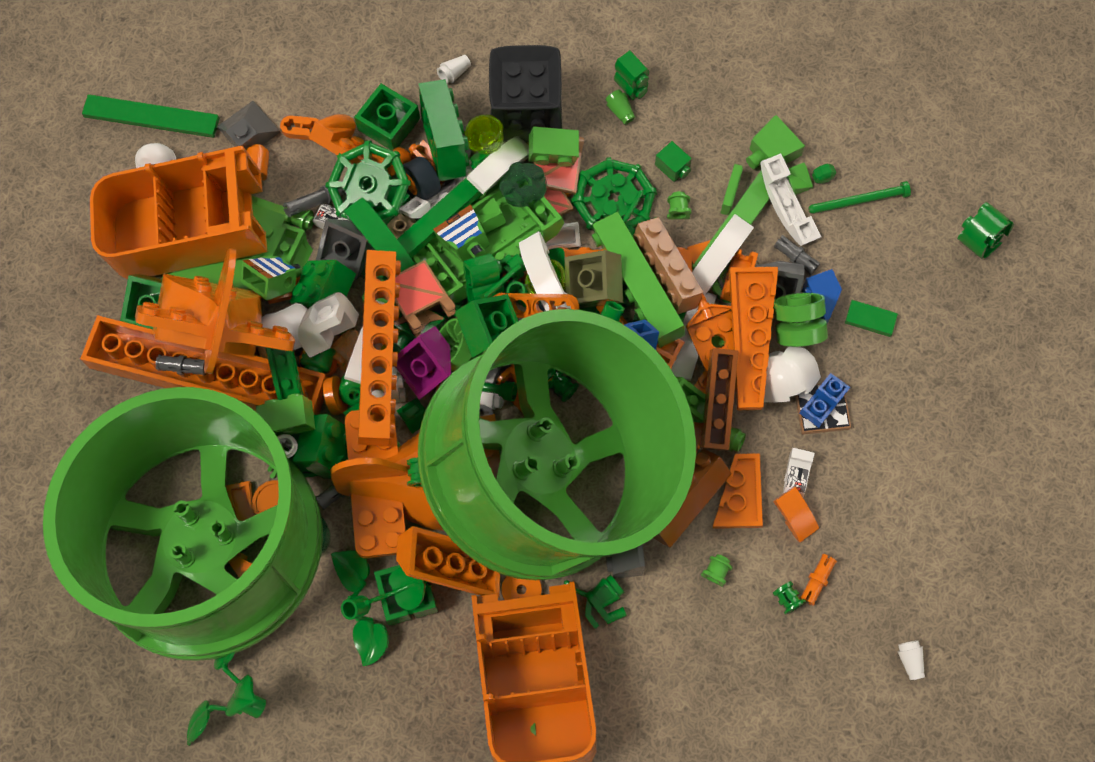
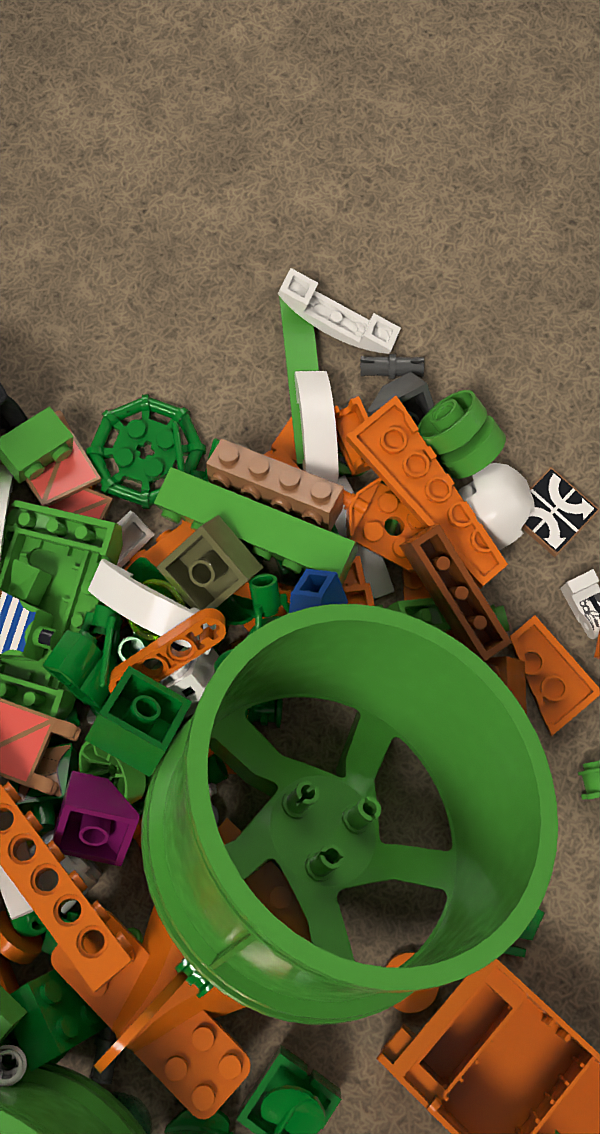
camera: 40 degrees left, 5 degrees up
(412, 414) = (124, 881): green slope -> none
(440, 561) = (299, 1060): orange slope -> none
(522, 173) = (20, 512): clear green plate -> none
(620, 106) = (70, 344): bright green cone -> none
(631, 75) = (57, 300): green brick -> none
(673, 162) = (180, 363): green brick -> none
(678, 206) = (225, 407): bright green brick -> none
(731, 189) = (267, 347): bright green tile -> none
(773, 140) = (269, 263): bright green torso -> none
(799, 178) = (329, 281): bright green slope -> none
(824, 173) = (348, 257): green tile -> none
(824, 400) = (552, 500): blue slope -> none
(826, 285) = (453, 377): blue slope -> none
(871, 318) = (521, 376): green tile -> none
(903, 189) = (442, 213): green bar -> none
(985, 230) = (561, 195): green brick -> none

